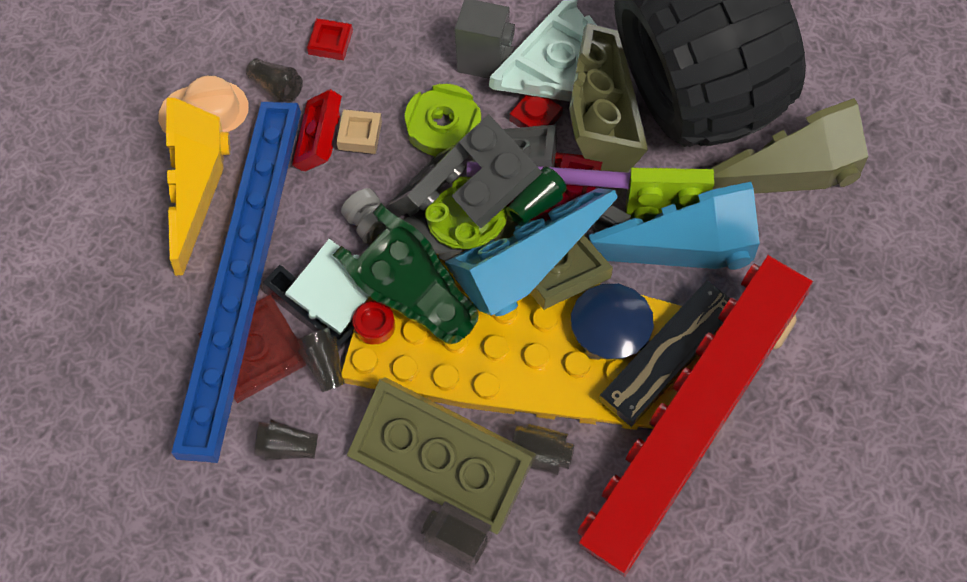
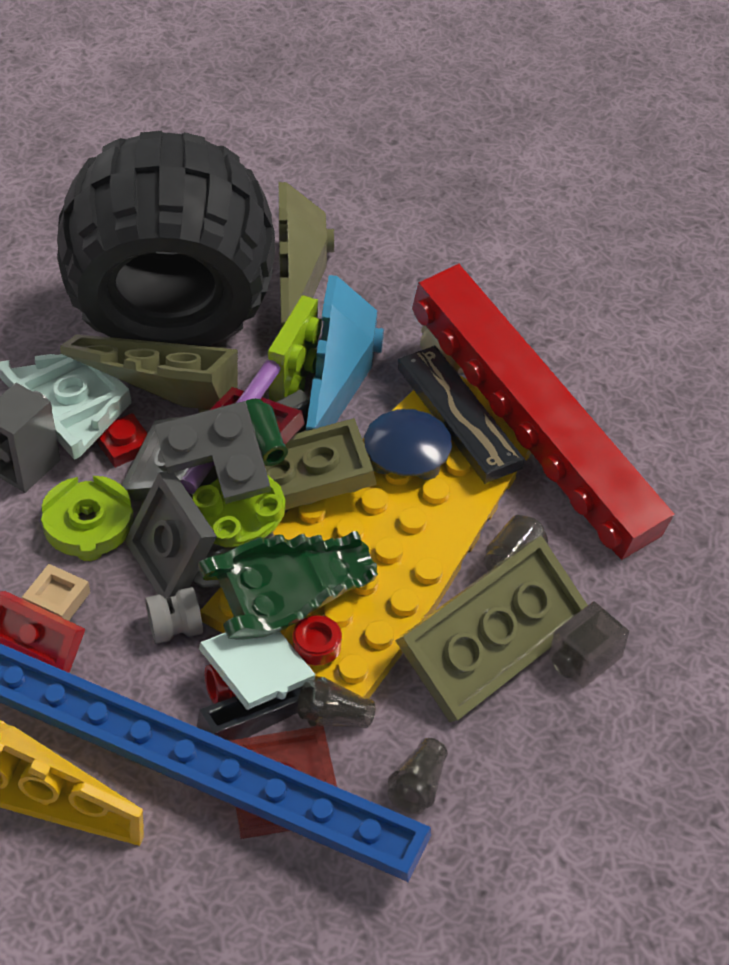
camera: 75 degrees left, 15 degrees down
(512, 267) = (326, 472): dark azure wedge -> none

